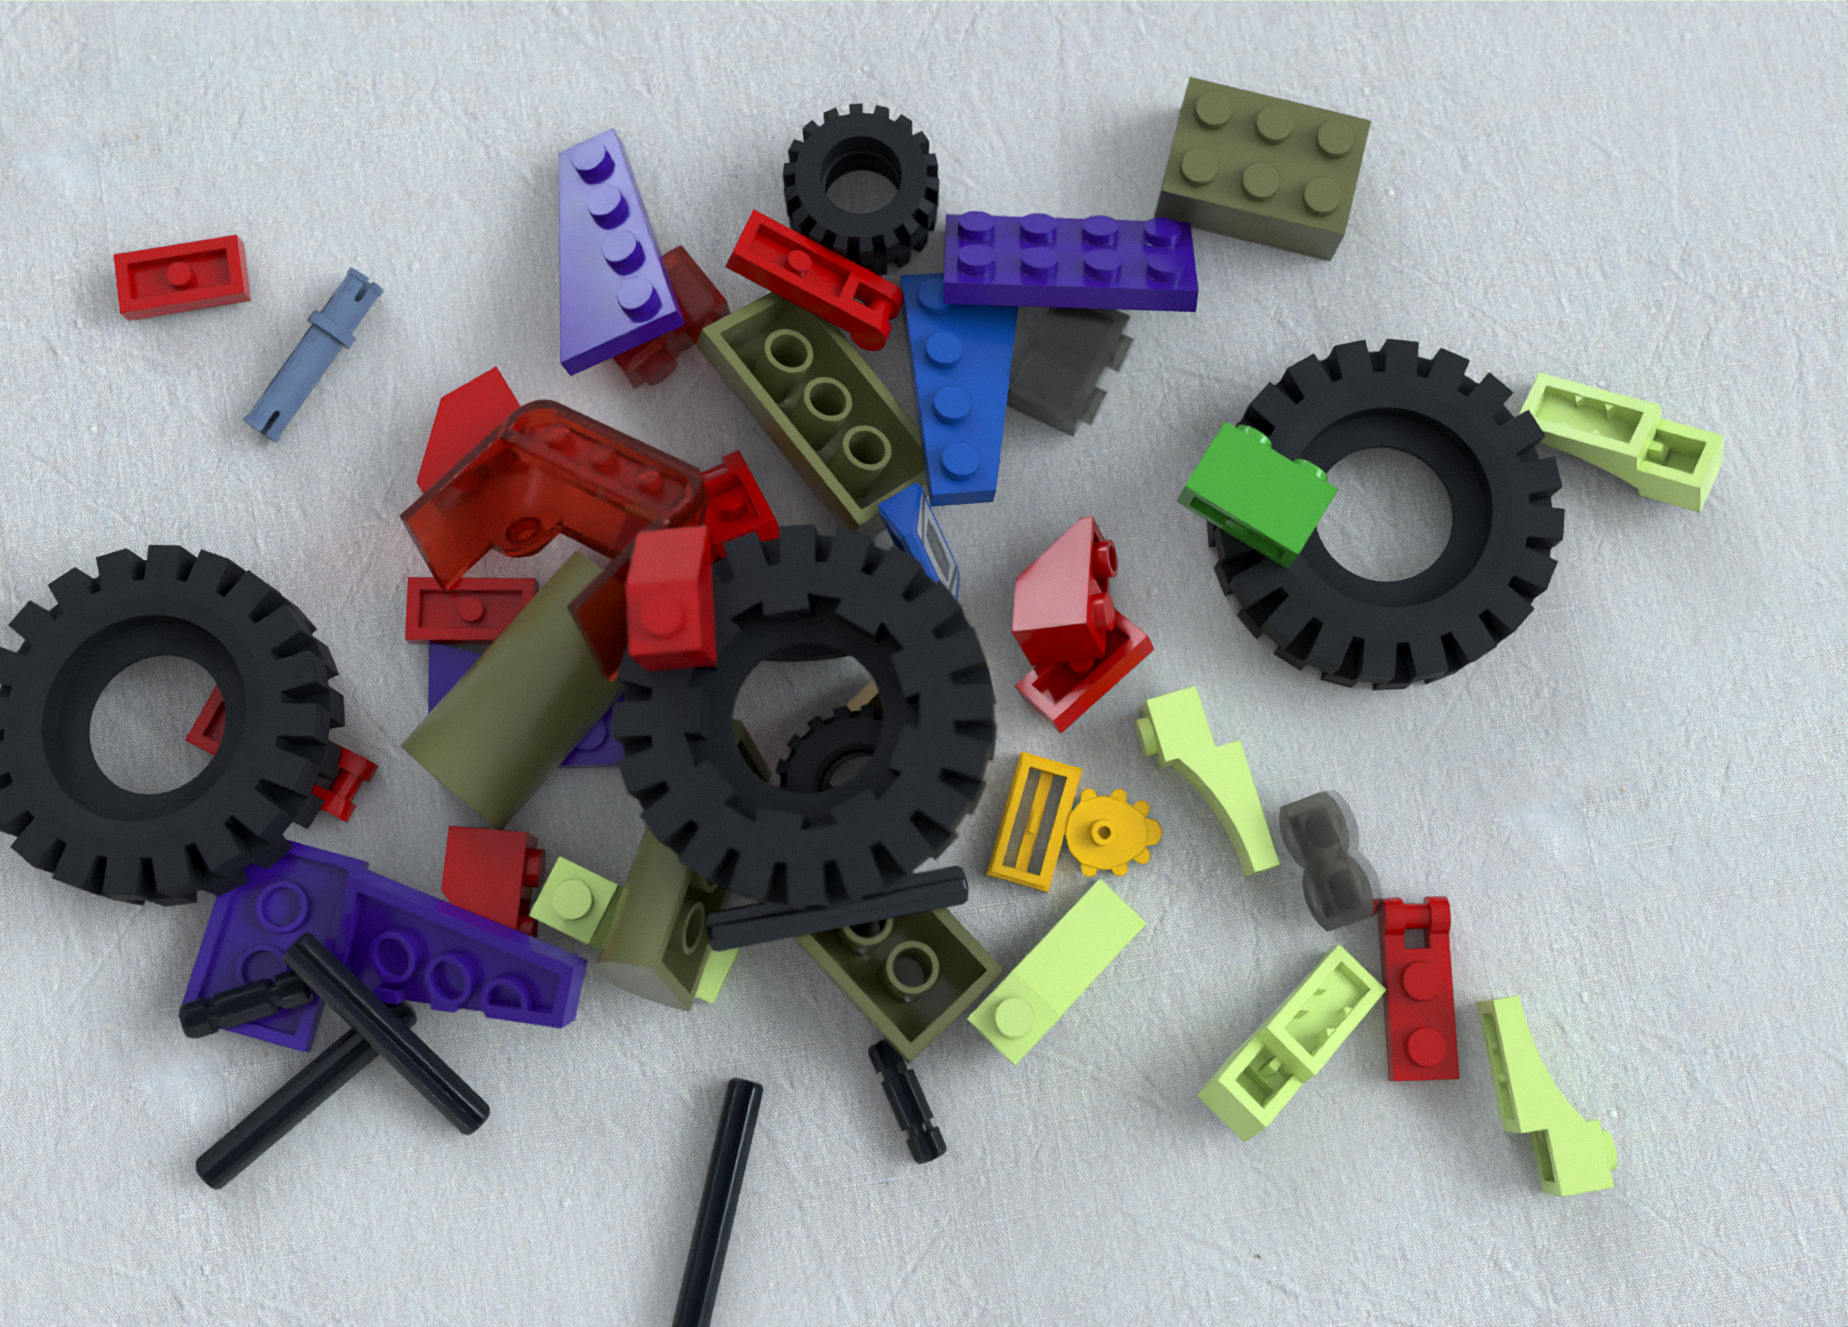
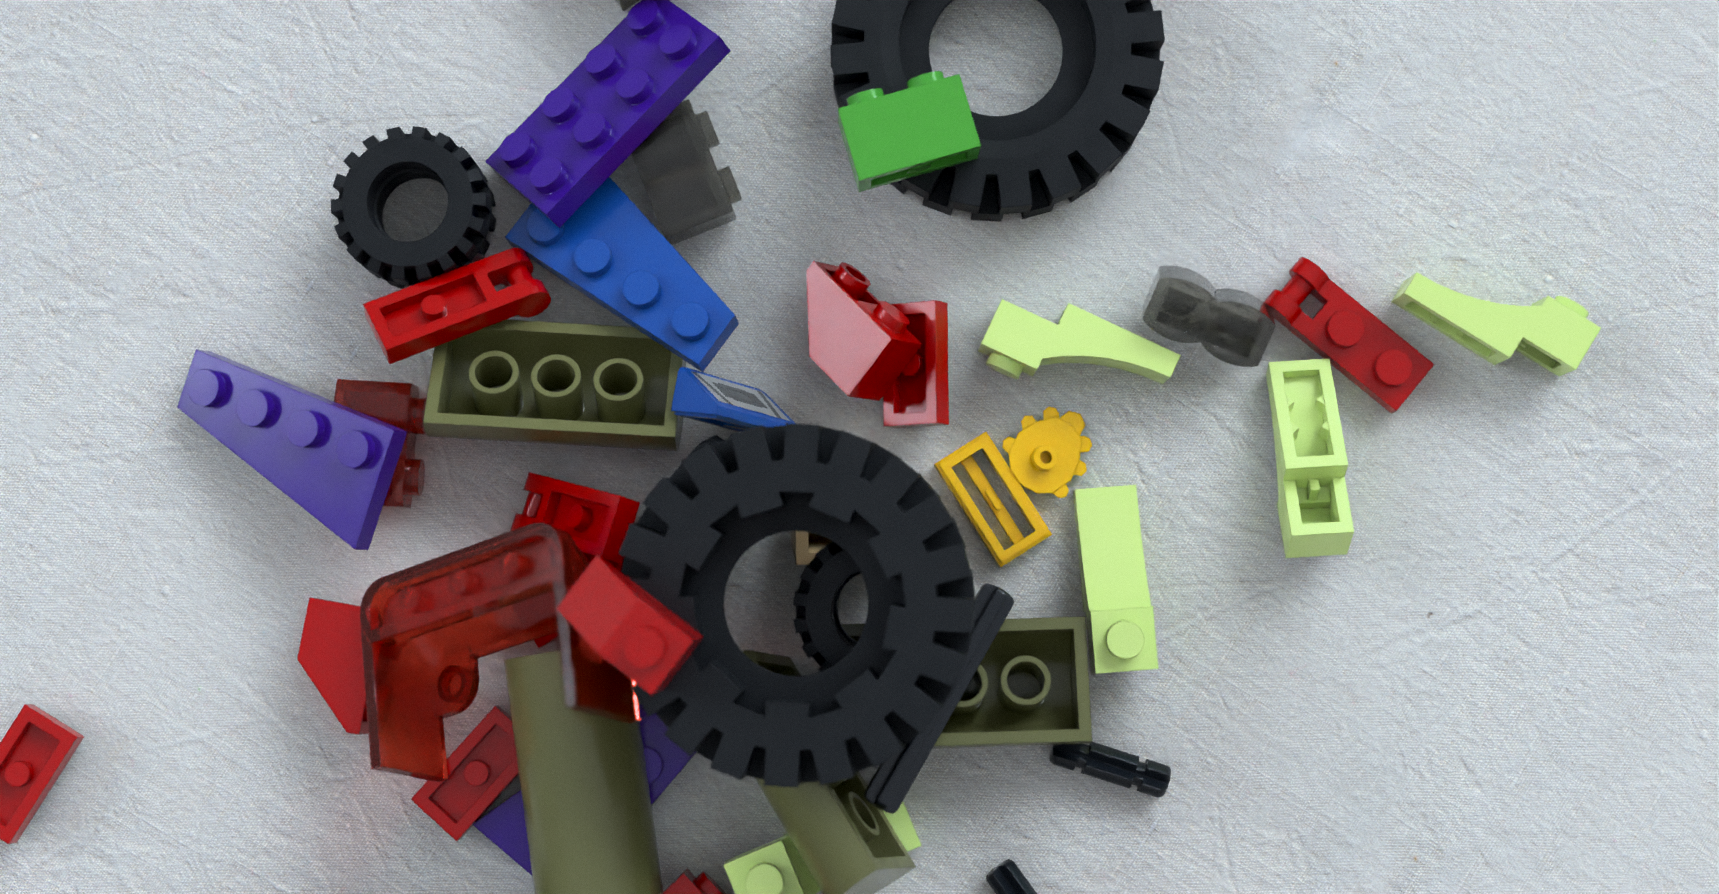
camera: 50 degrees left, 5 degrees up
(314, 353) = (171, 724): sand blue pin -> none

